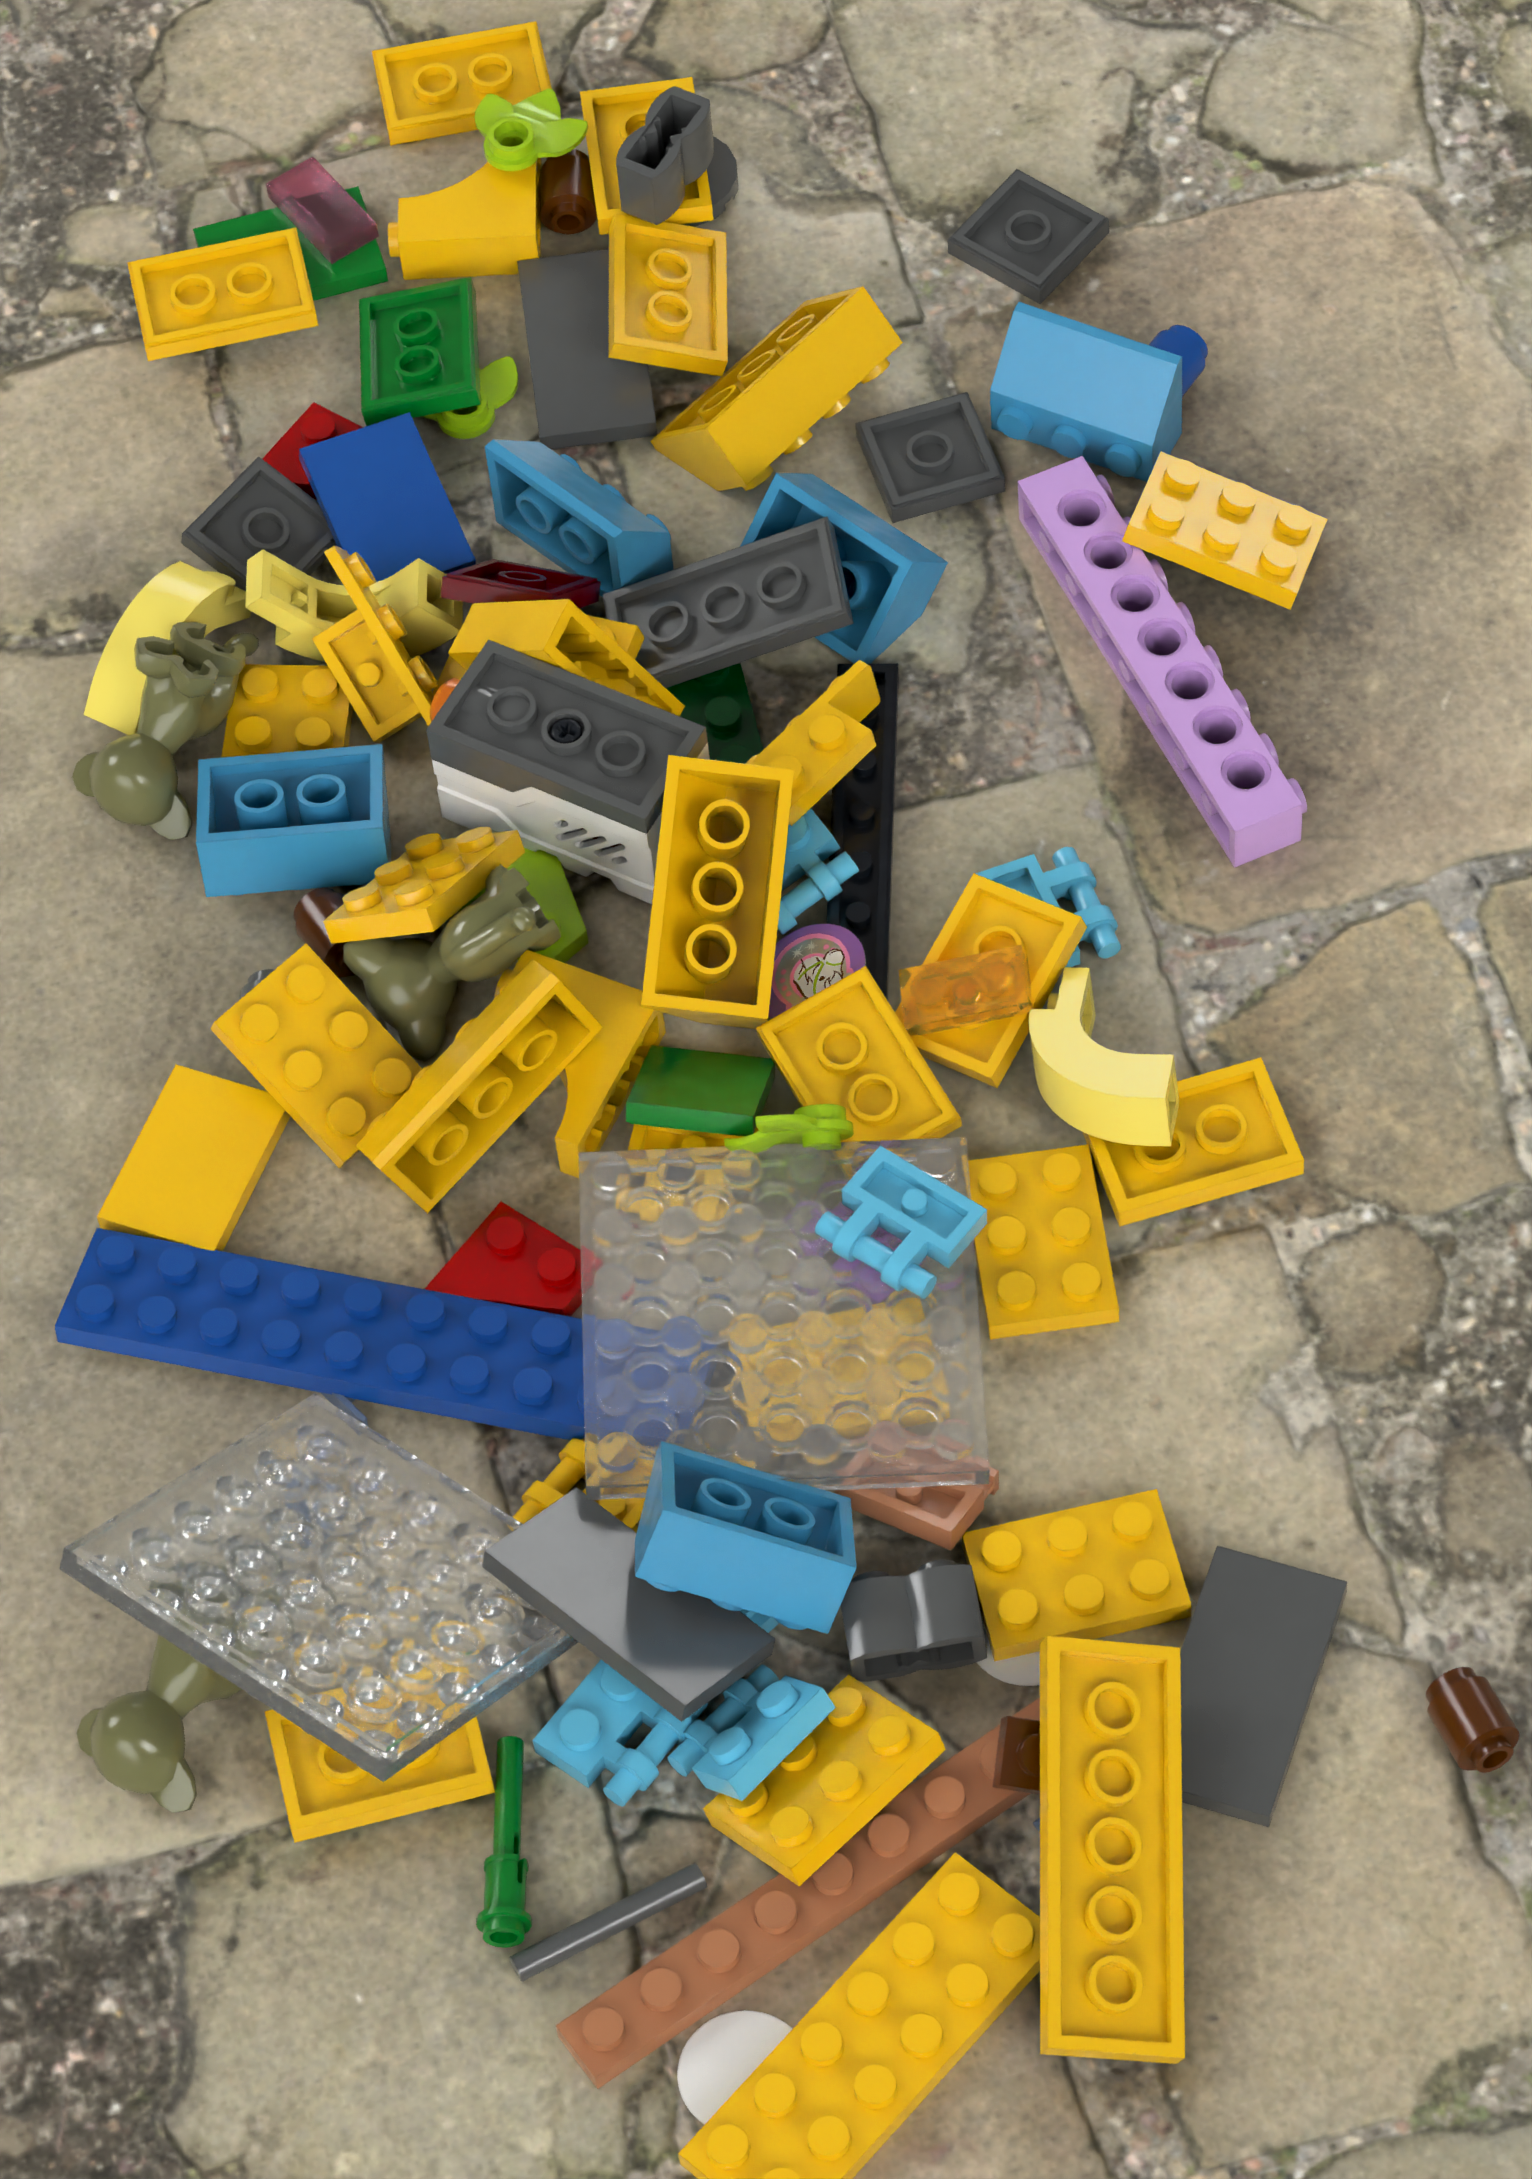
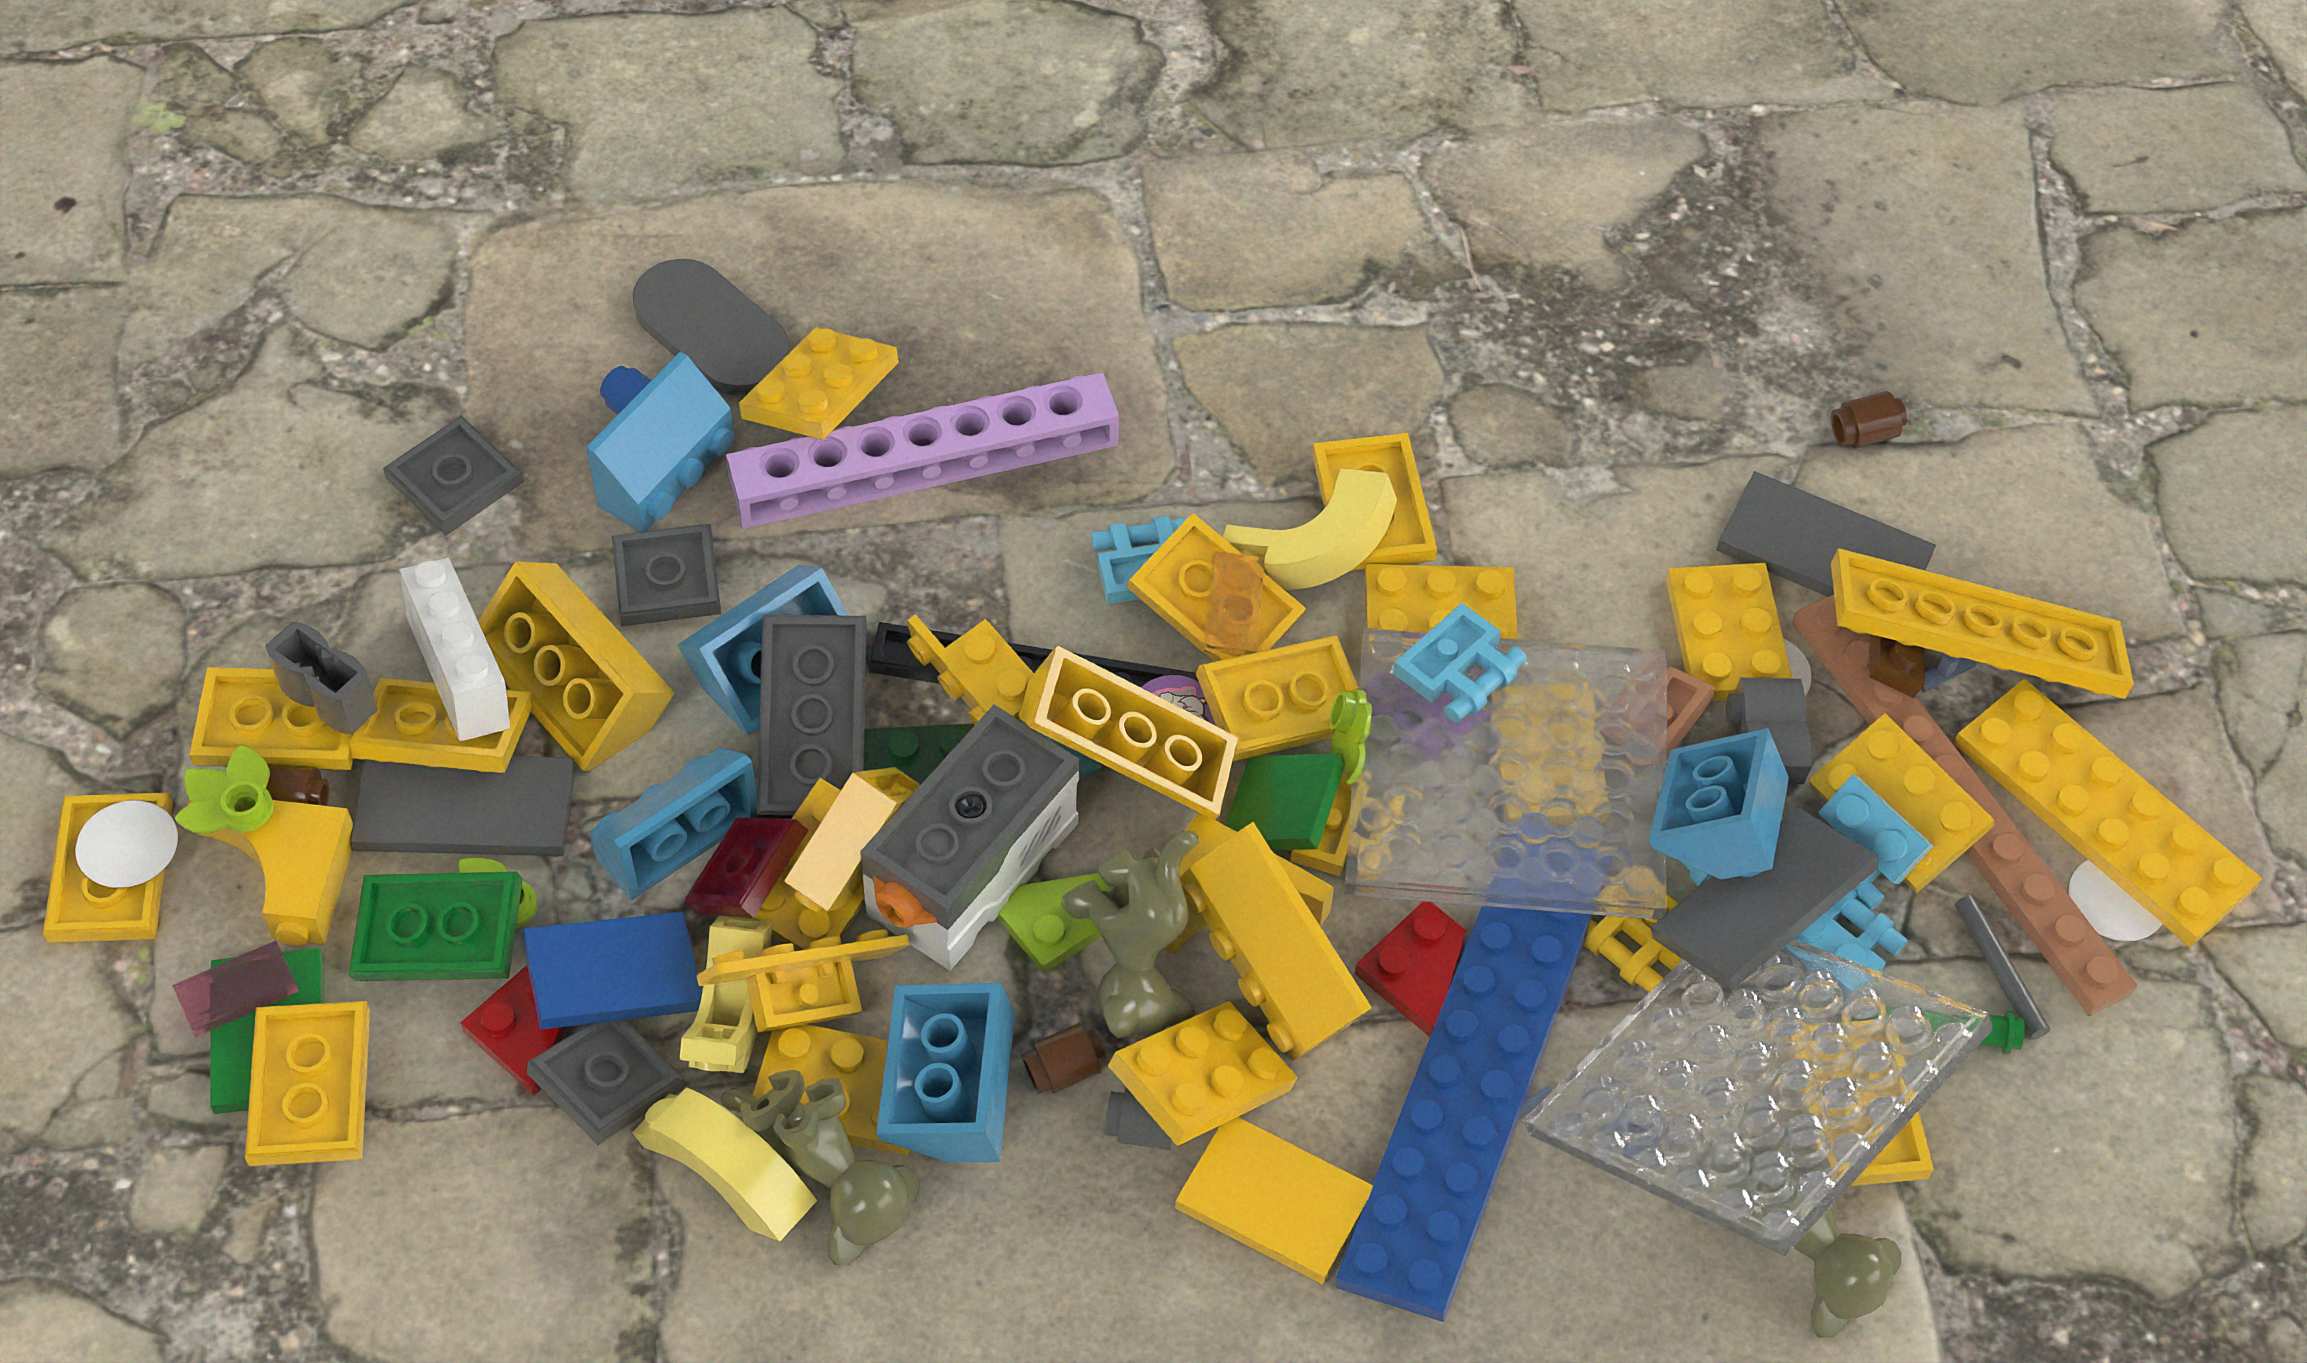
camera: 90 degrees left, 0 degrees up
(423, 885) = (1063, 963): yellow plate -> none
(479, 70) = (126, 844): none -> white sticker
(751, 270) = (455, 649): none -> white brick
(1311, 417) = (711, 322): none -> dark grey tile

